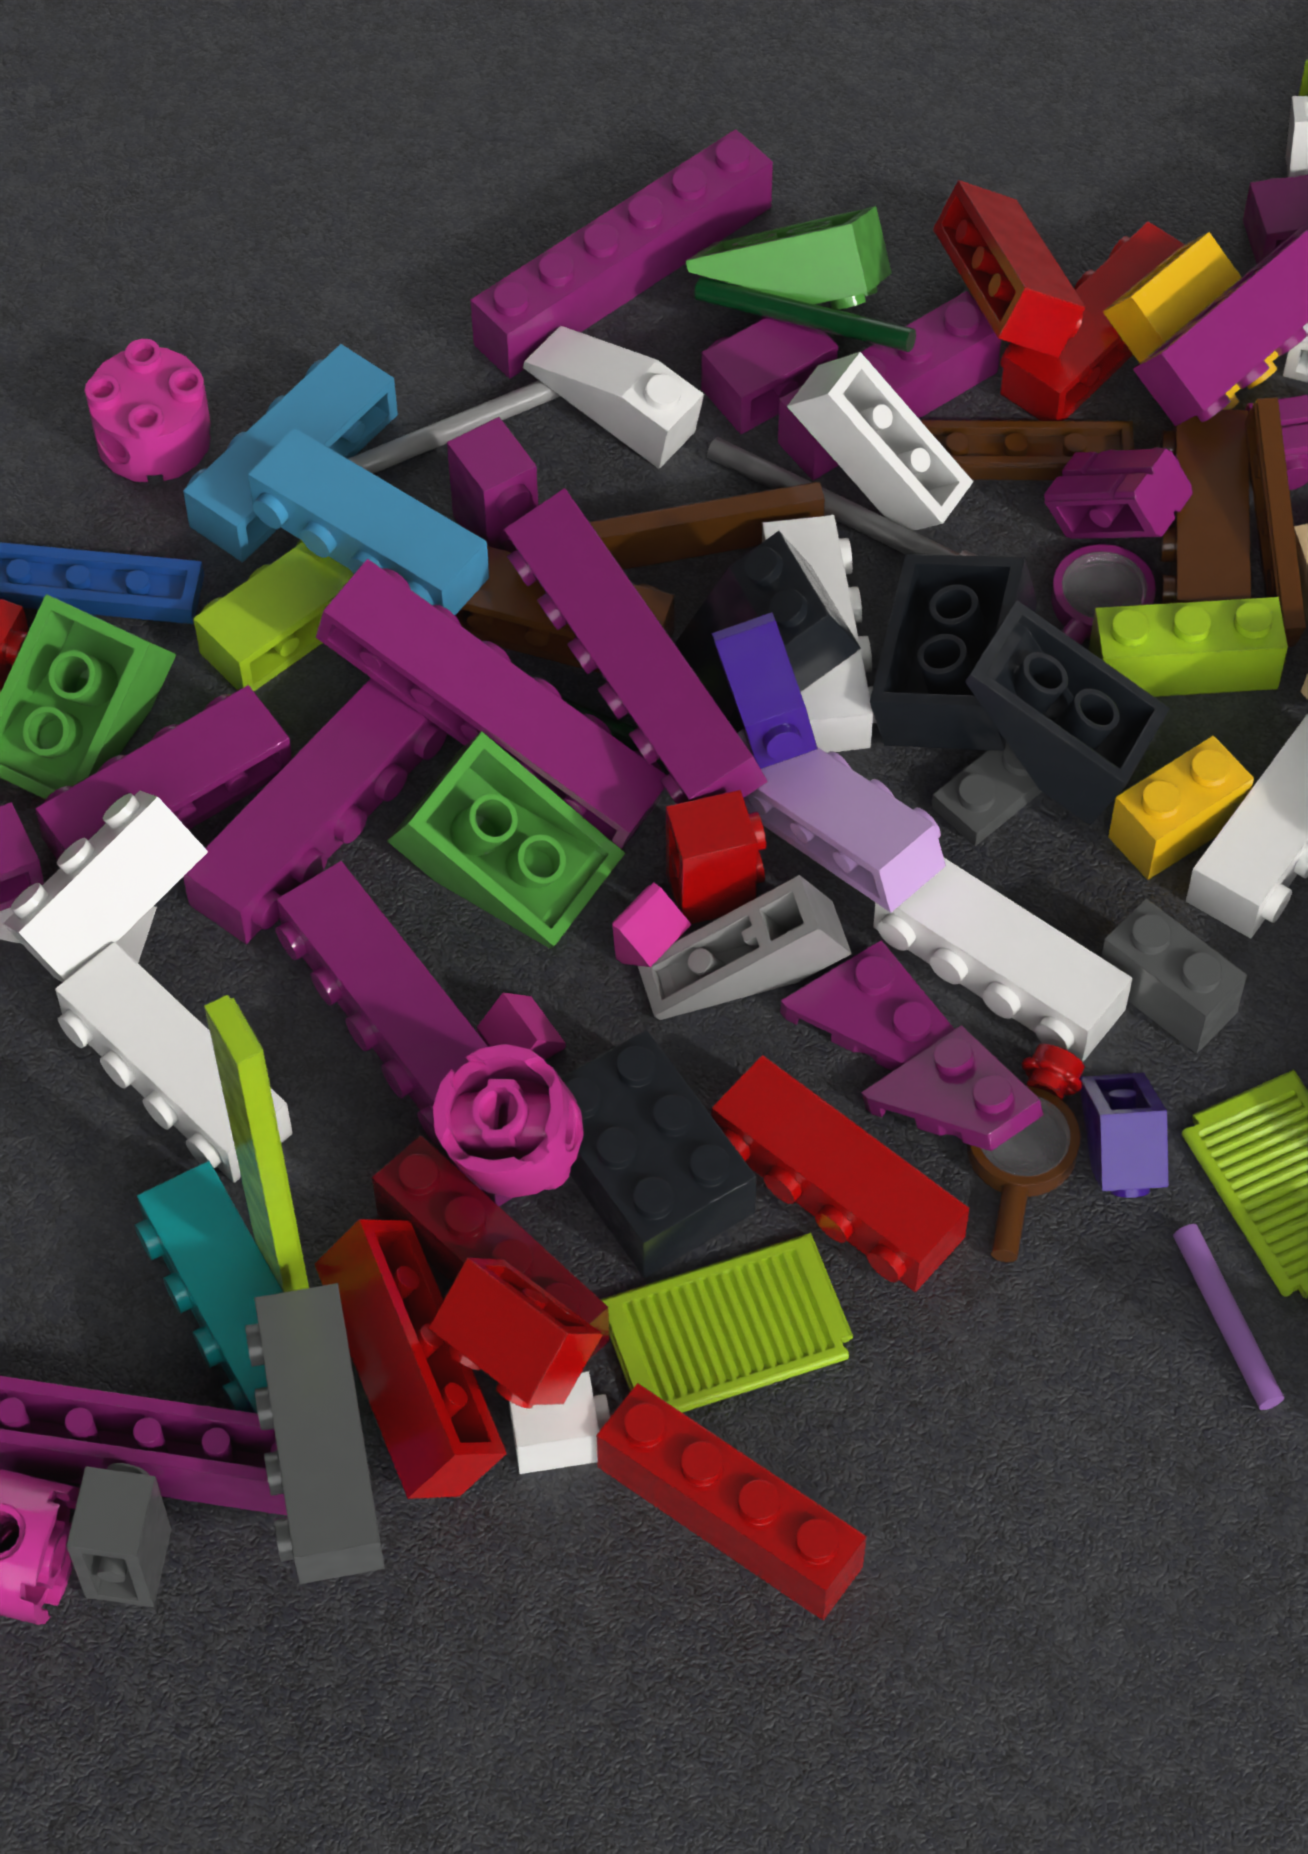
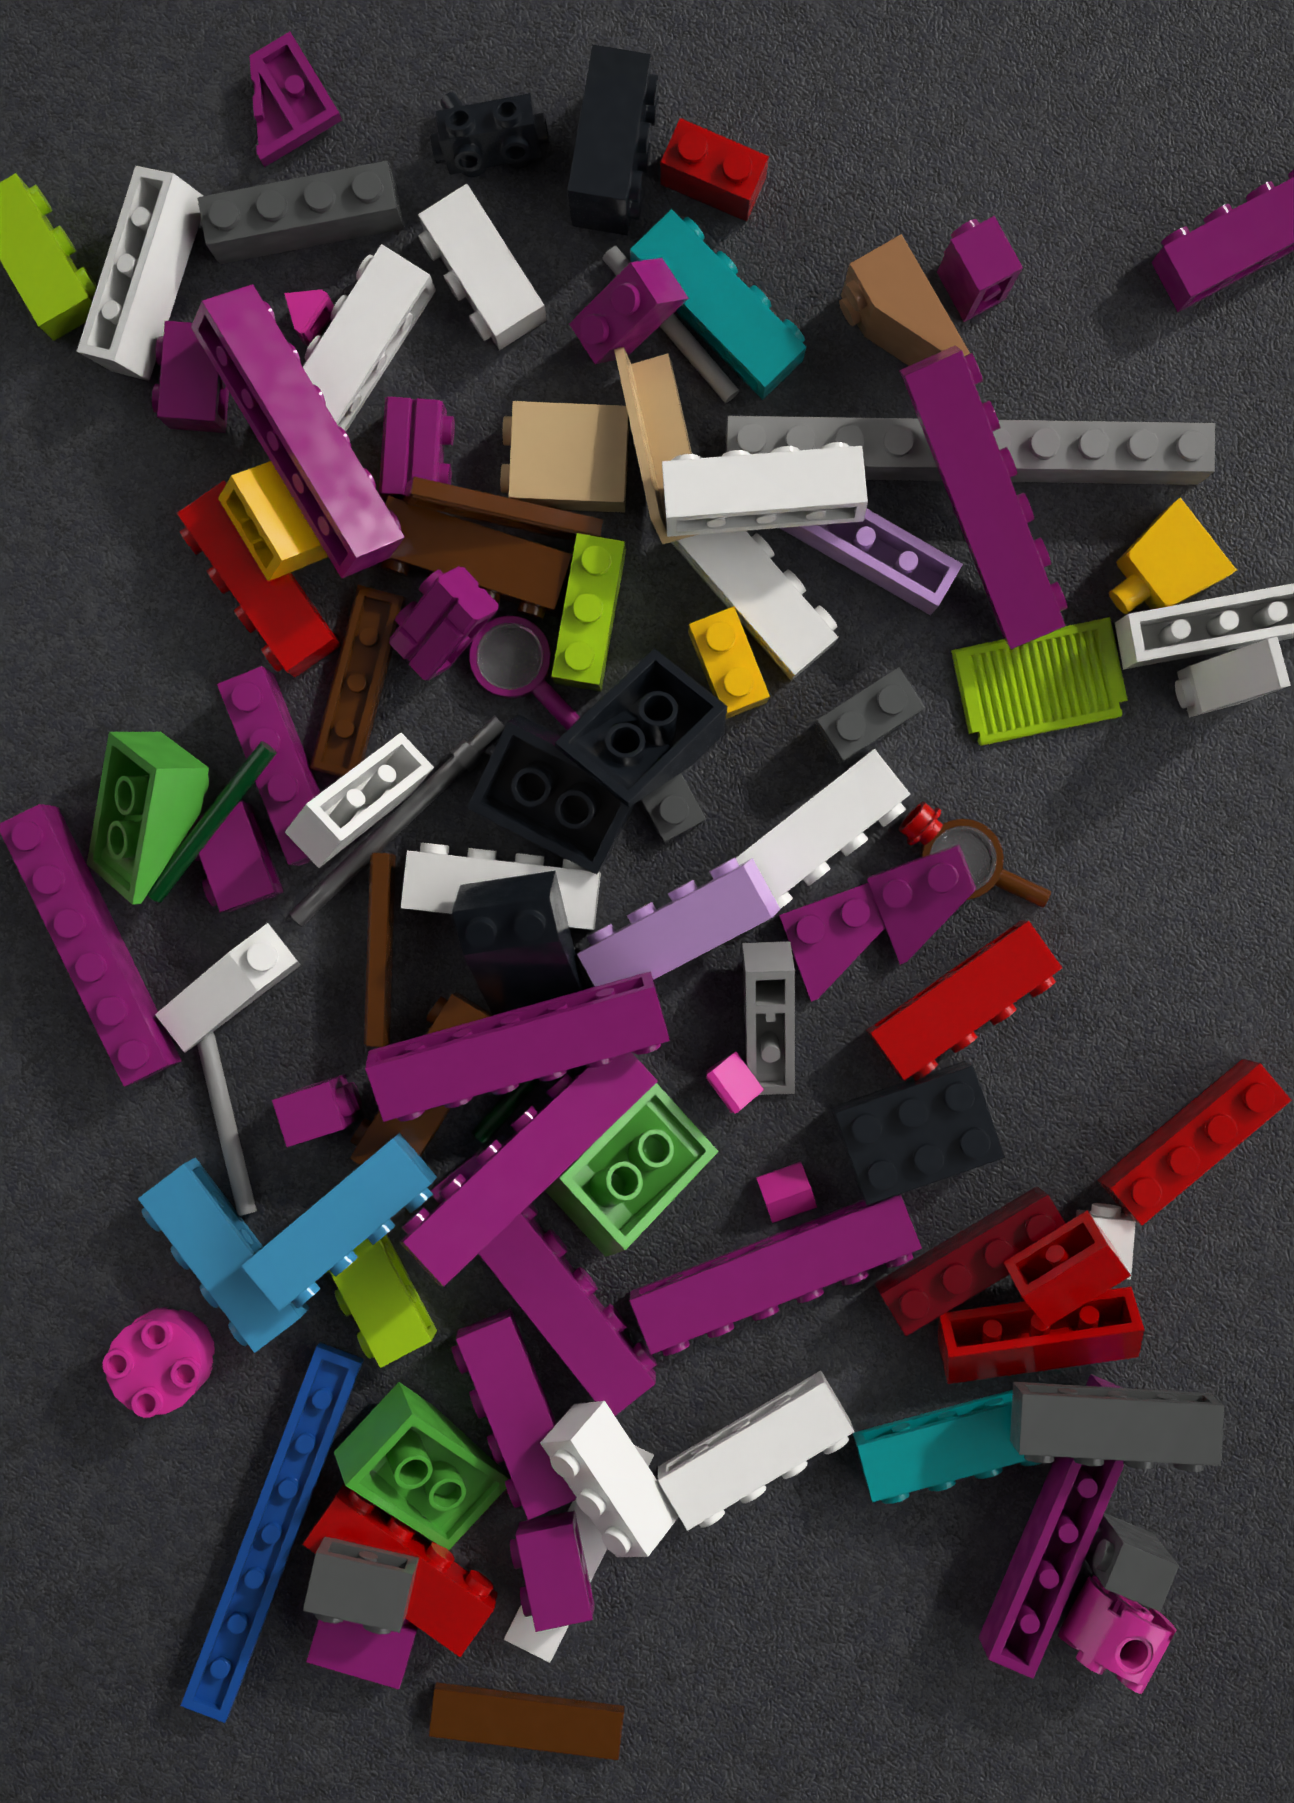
camera: 75 degrees left, 30 degrees up
(257, 1142) = (977, 1462): lime tile -> none
(508, 1121) = (909, 1239): dark pink brick -> none
(713, 855) = (697, 1025): red brick -> none
(730, 1325) = (1049, 1103): lime window -> none
(765, 691) = (593, 958): dark purple slope -> none
(1009, 269) = (207, 645): red brick -> none
(1125, 1133) = (979, 788): dark purple slope -> none
(1228, 1317) = (1130, 759): medium lavender bar -> none

